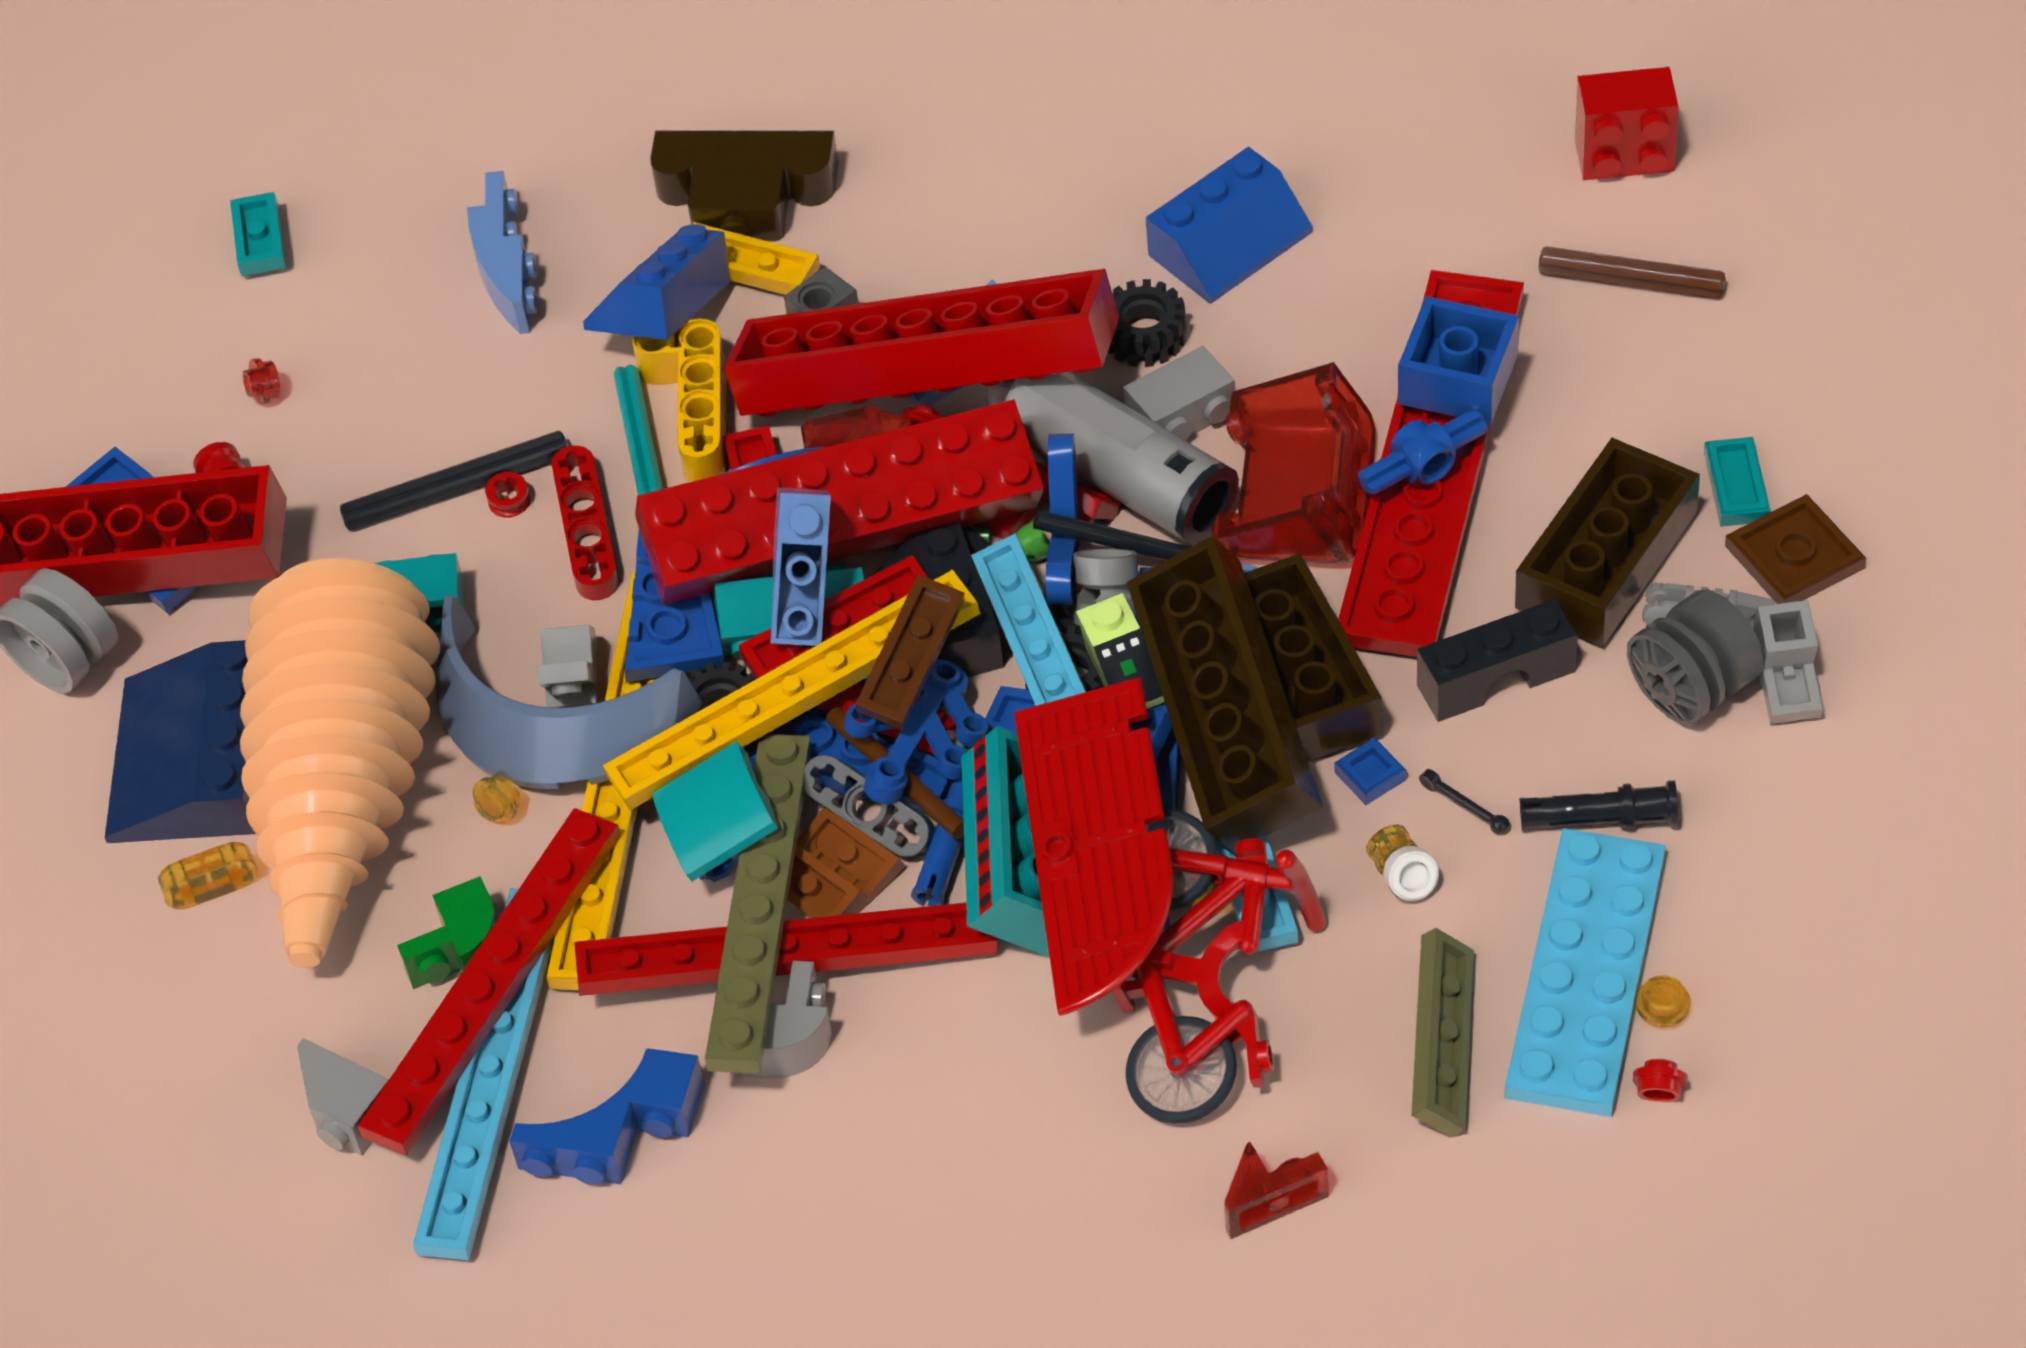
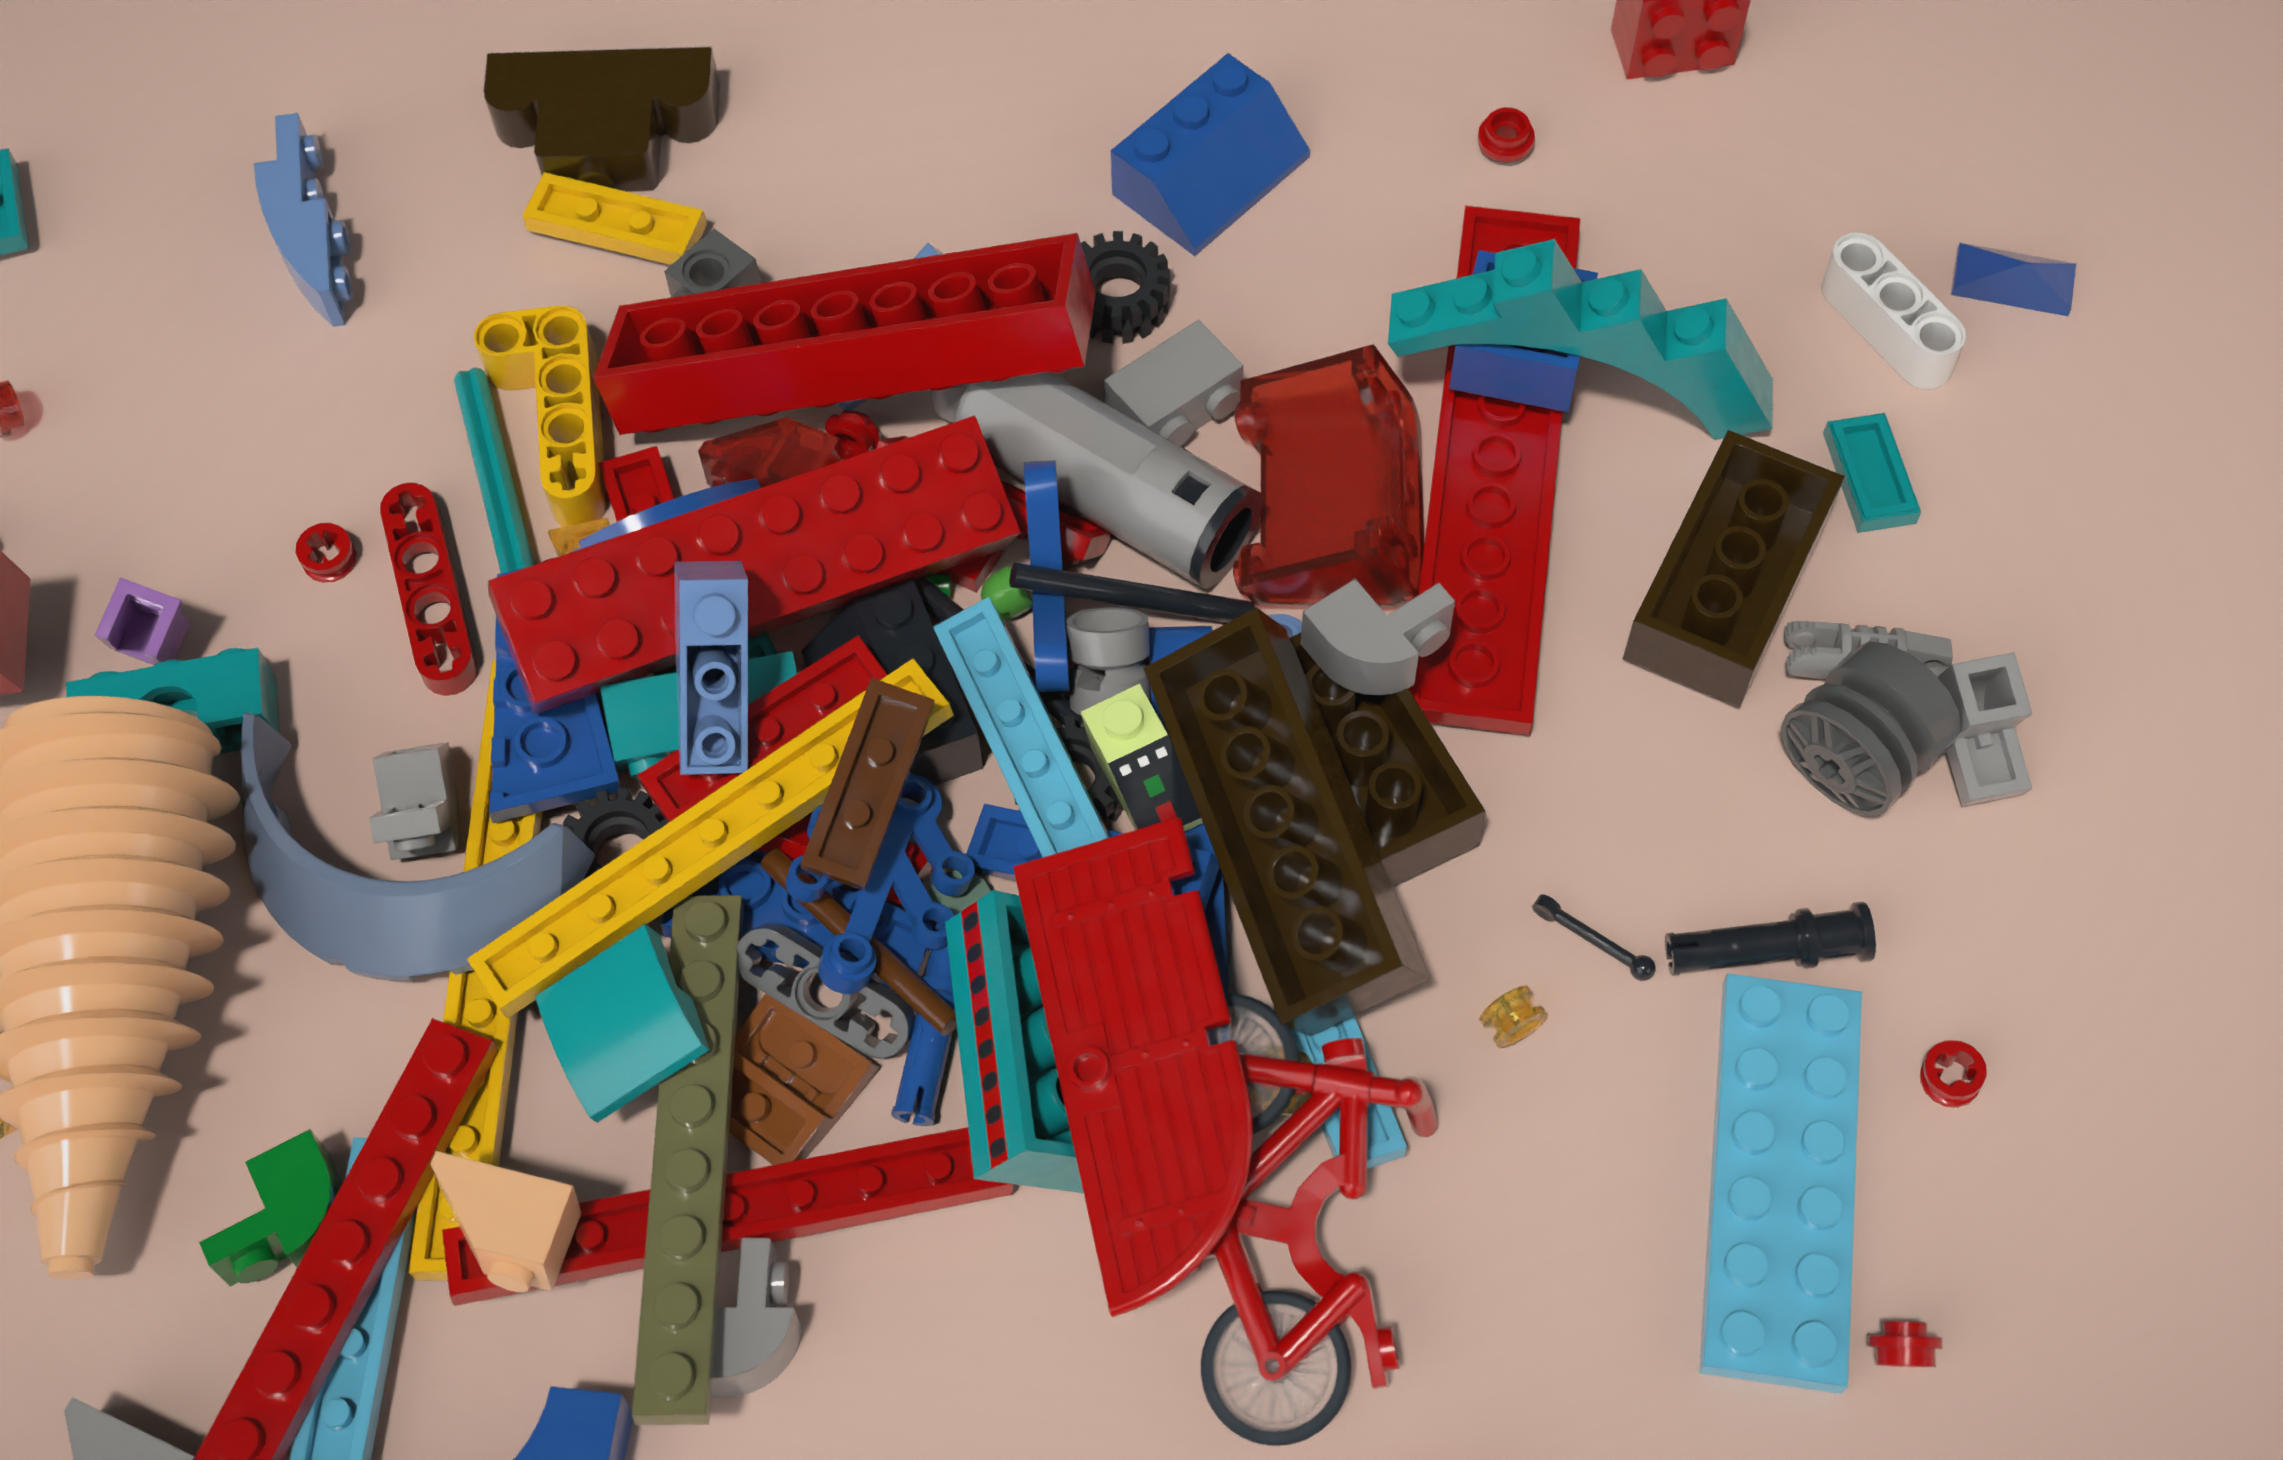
camera: 10 degrees left, 10 degrees up
(369, 532) = (143, 623): none -> medium lavender window
(450, 481) = (261, 532): black axle -> none
(496, 799) = (329, 1000): clear yellow plate -> none
(624, 930) = (510, 1220): none -> light nougat slope
(666, 286) = (513, 265): blue slope -> none
(1309, 578) = (1370, 649): none -> light grey brick
(1370, 771) = (1468, 899): blue tile -> none
(1411, 873) = (1542, 1051): white tile -> none
(1422, 452) = (1490, 456): blue axle -> none
(1442, 1033) = (1613, 1291): olive plate -> none
(1461, 667) = (1575, 752): black arch -> none
(1463, 332) = (1618, 319): none -> teal arch
(1474, 218) = (1506, 135): none -> red plate
(1632, 272) = (1706, 198): reddish brown axle -> none
(1663, 1001) = (1889, 1222): clear yellow plate -> none
(1728, 893) = (1960, 1092): none -> red bush
(1770, 360) = (1893, 311): none -> white beam
(1795, 551) = (1957, 566): reddish brown tile -> none
(1879, 342) = (2013, 279): none -> blue slope

